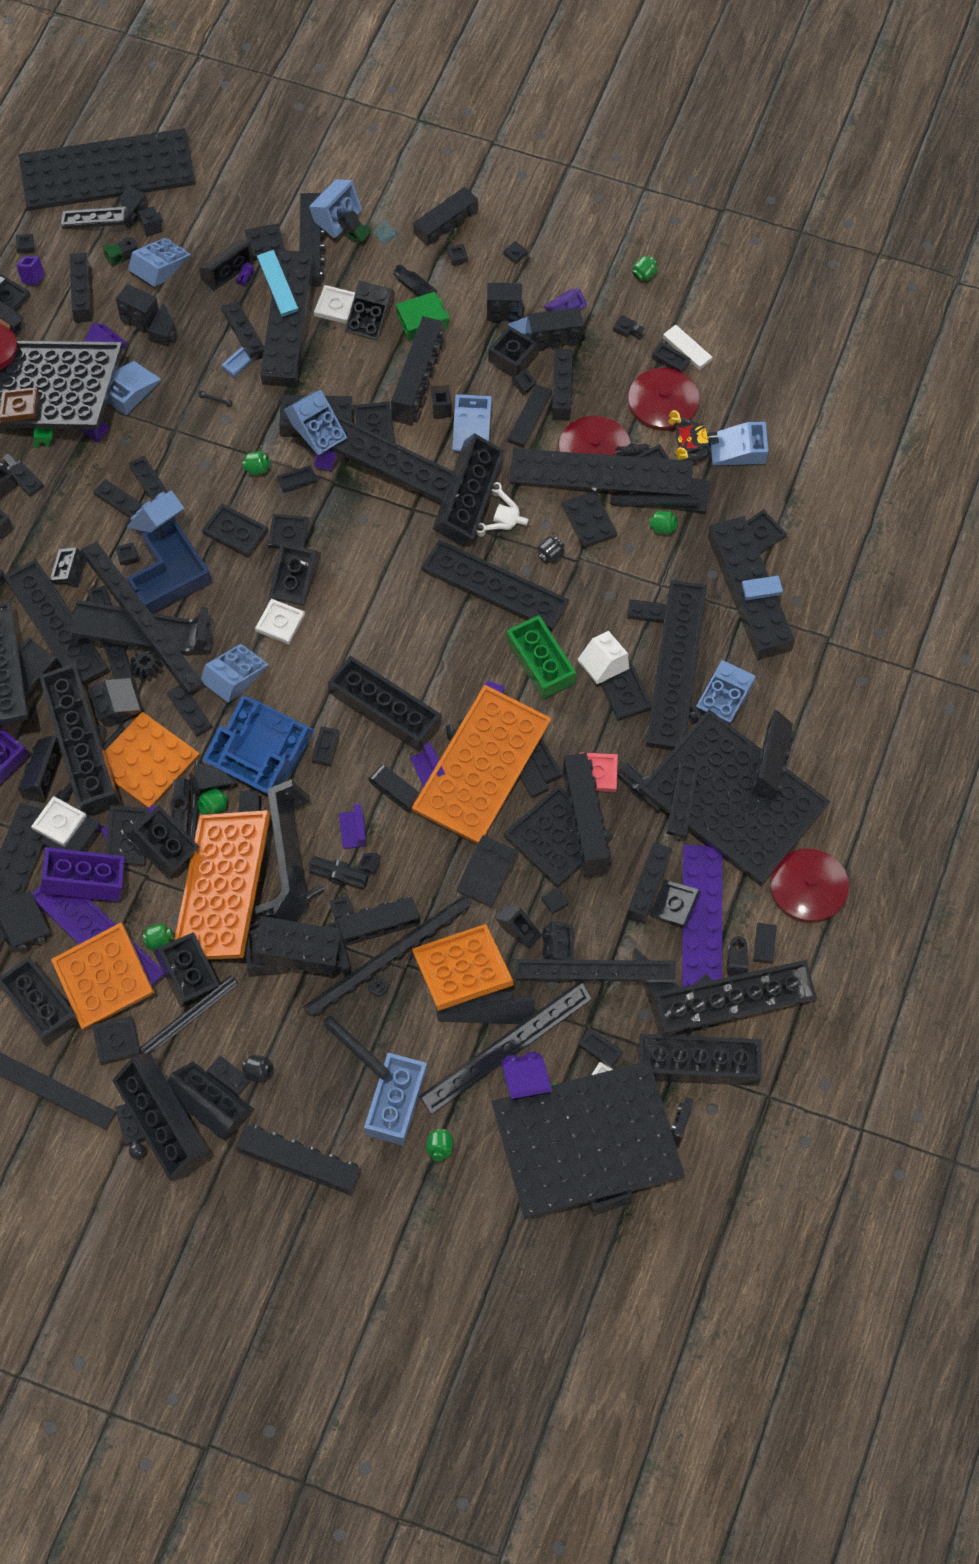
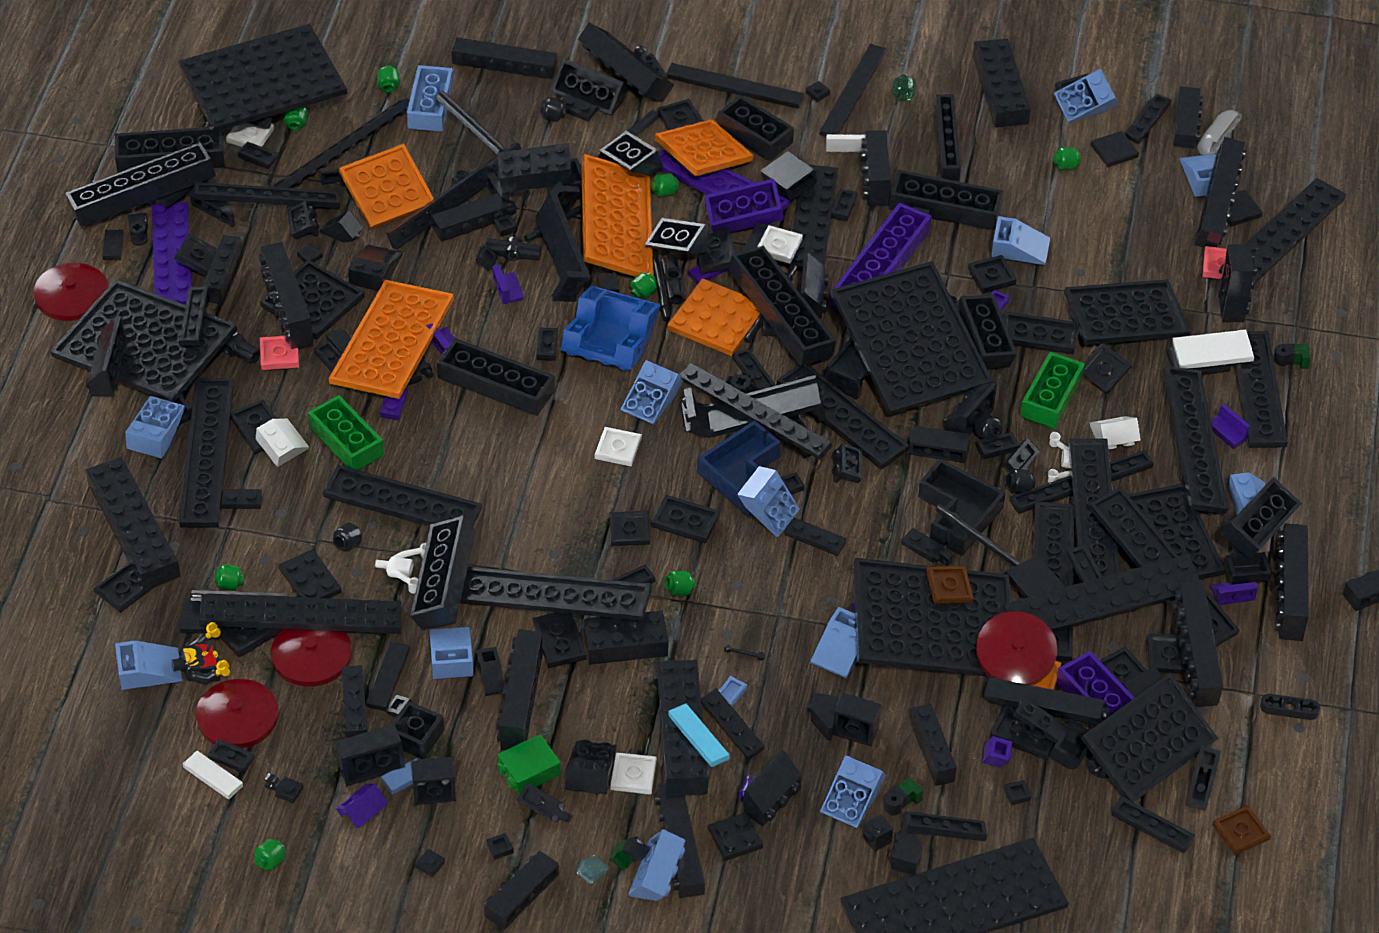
camera: 170 degrees right, 15 degrees down
(101, 333) = (885, 694): dark purple panel -> none
(115, 700) = (760, 348): black slope -> none
(147, 477) = (790, 555): black plate -> none
(189, 711) = (683, 357): black plate -> none
(209, 777) = (652, 291): black slope -> none
(294, 573) = (612, 486): black slope -> none
(316, 422) = (620, 587): medium blue slope -> none
(394, 787) = (473, 317): black beam -> none
(525, 1075) = (319, 111): dark purple slope -> none
(631, 449) = (258, 651): black pin -> none
(682, 1117) = (183, 104): black plate -> none
(762, 587) = (119, 501): medium blue tile -> none

